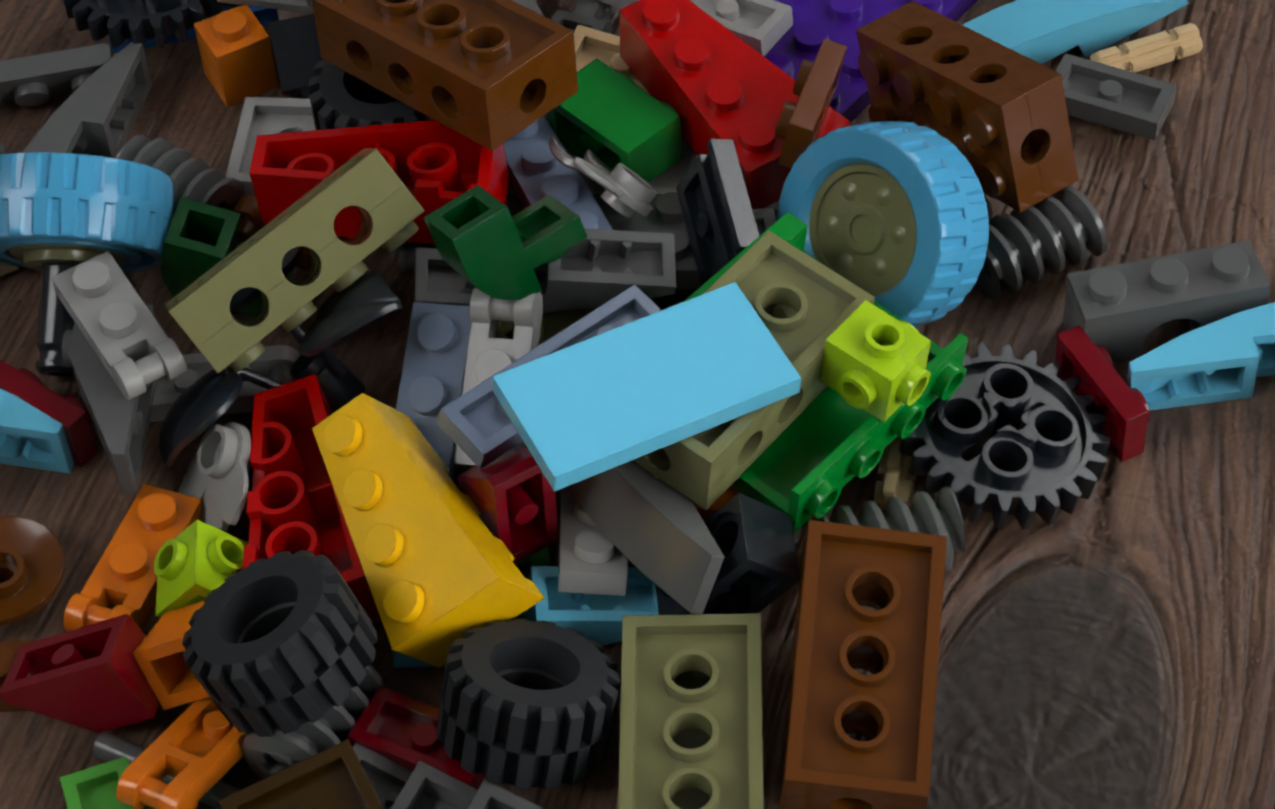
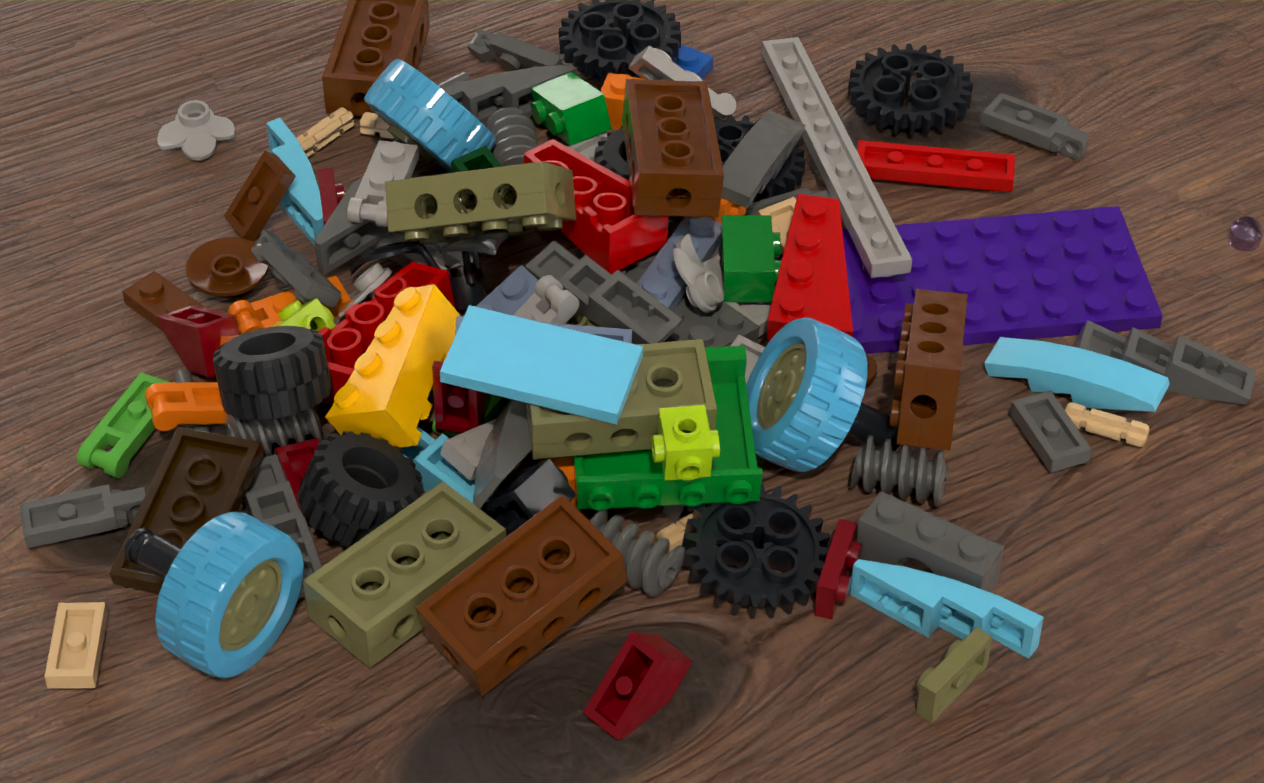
camera: 40 degrees right, 5 degrees down
(104, 509) = (295, 270): none -> dark grey hinge
(190, 95) = (570, 108): none -> green brick
(500, 250) = (564, 262): dark green brick -> none
(716, 208) = (737, 318): black plate -> none
(816, 87) = (833, 301): reddish brown plate -> none
(1073, 677) = (637, 684): none -> dark red slope

